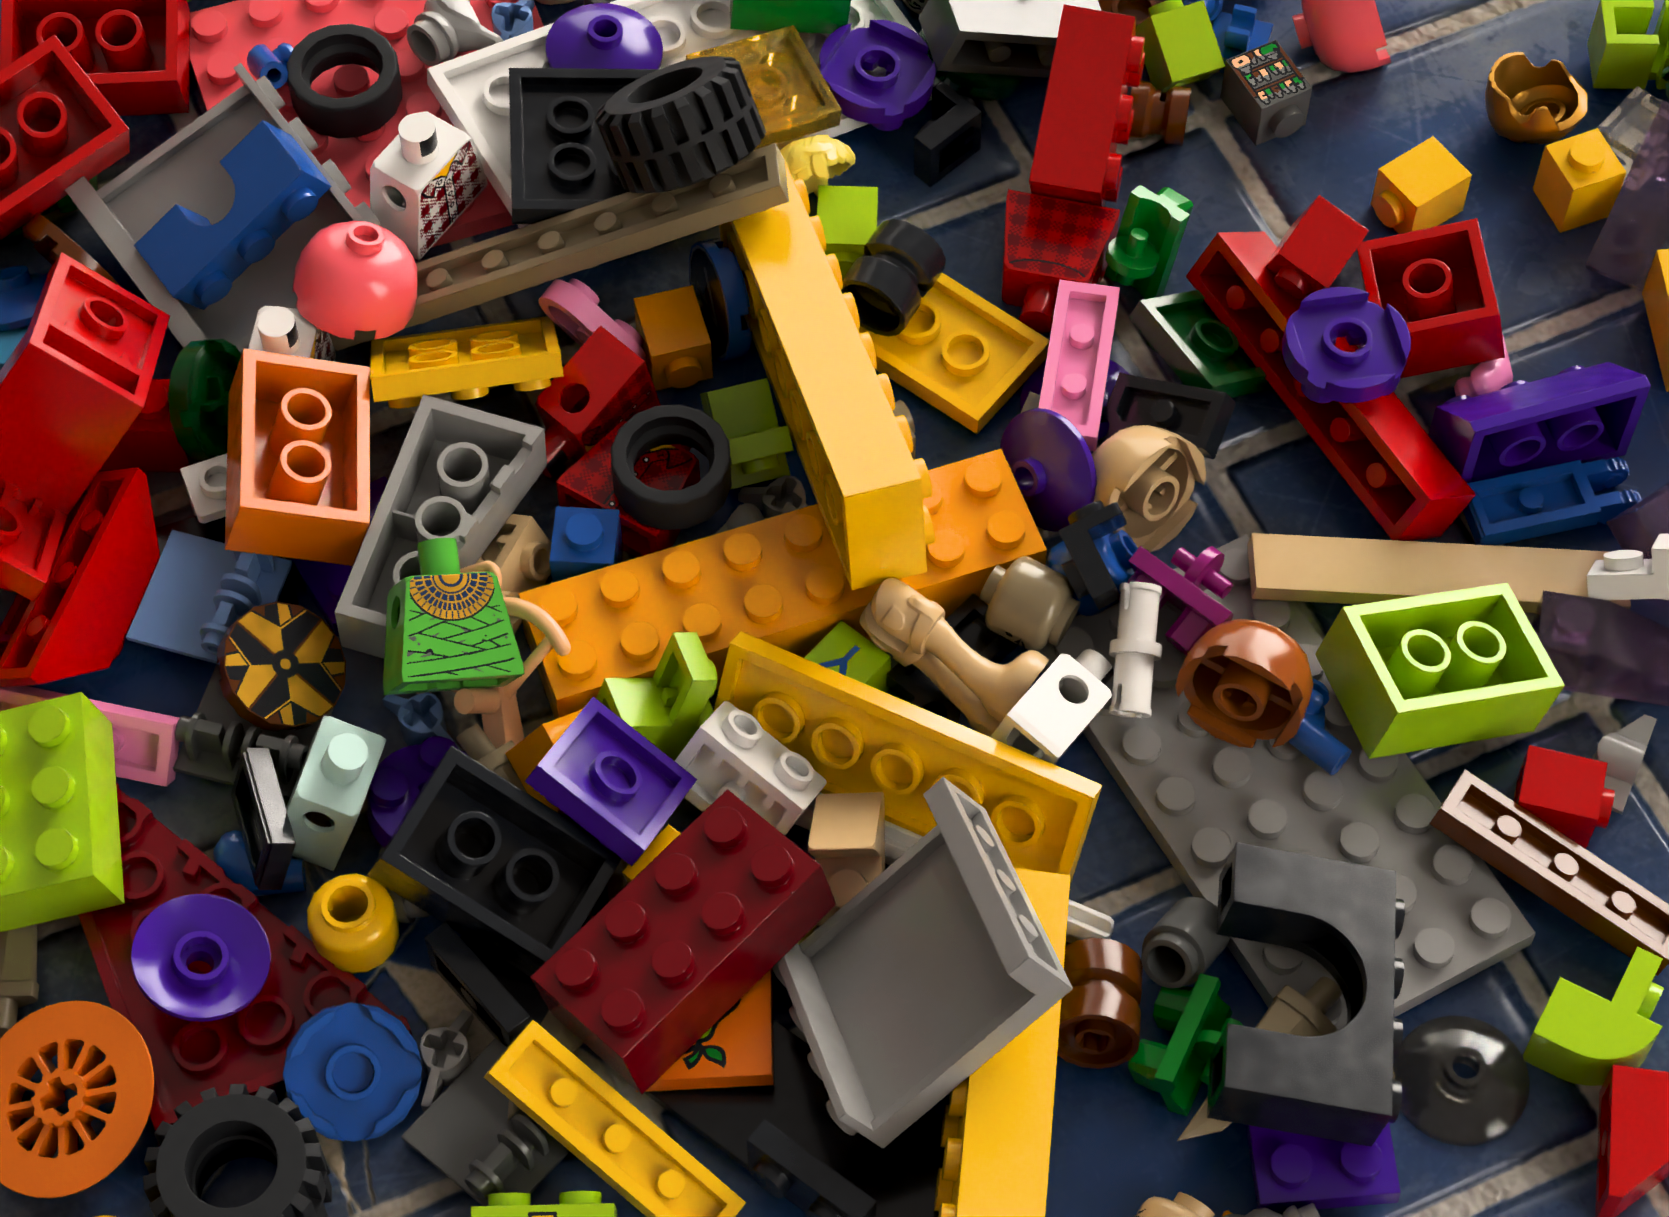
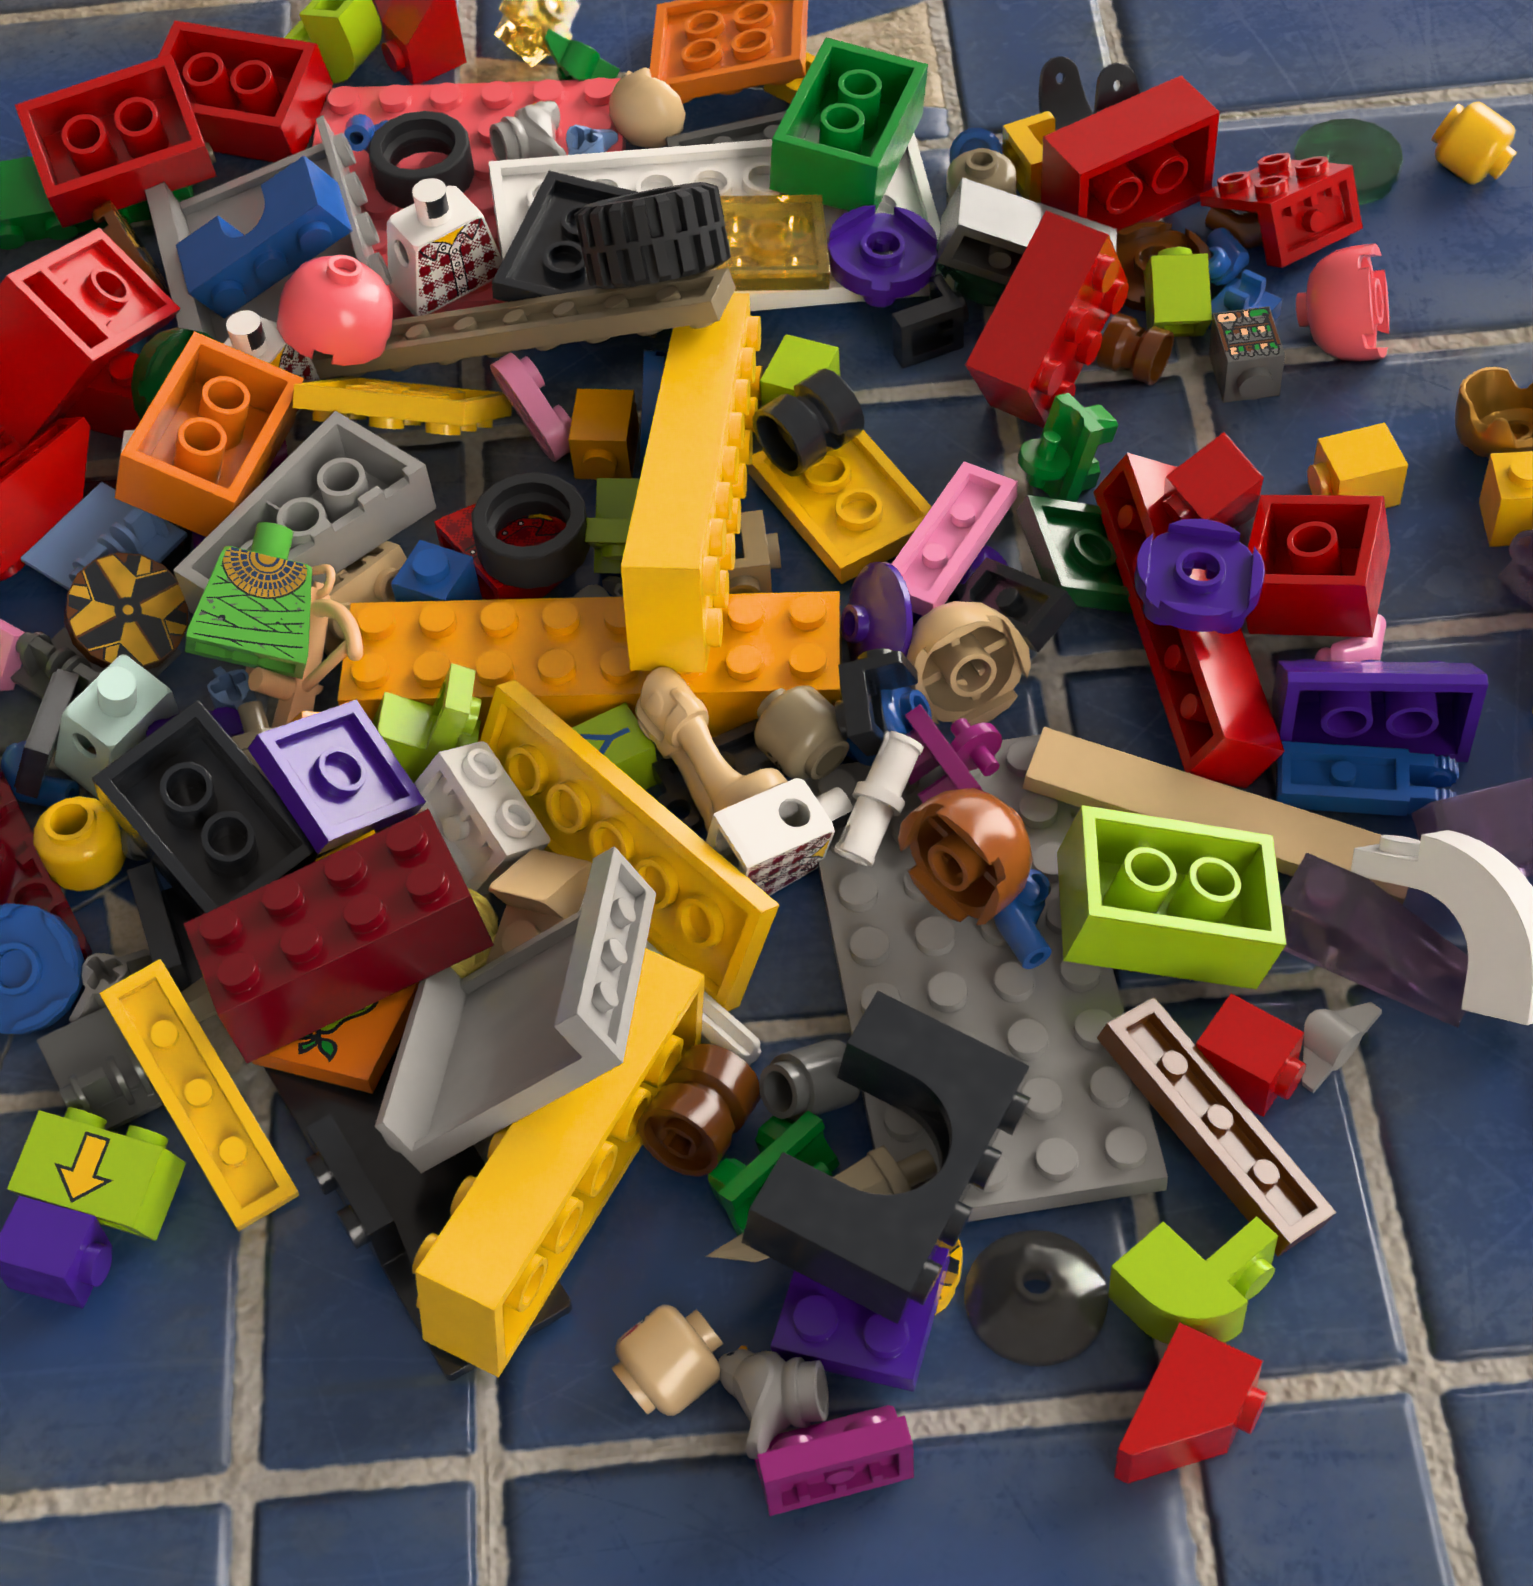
camera: 25 degrees right, 5 degrees down
(598, 391) = (492, 450): red torso -> none
(603, 39) = (649, 167): dark purple dish -> none
(817, 160) = (789, 313): light yellow hair -> none
(1049, 243) = (976, 429): red torso -> none

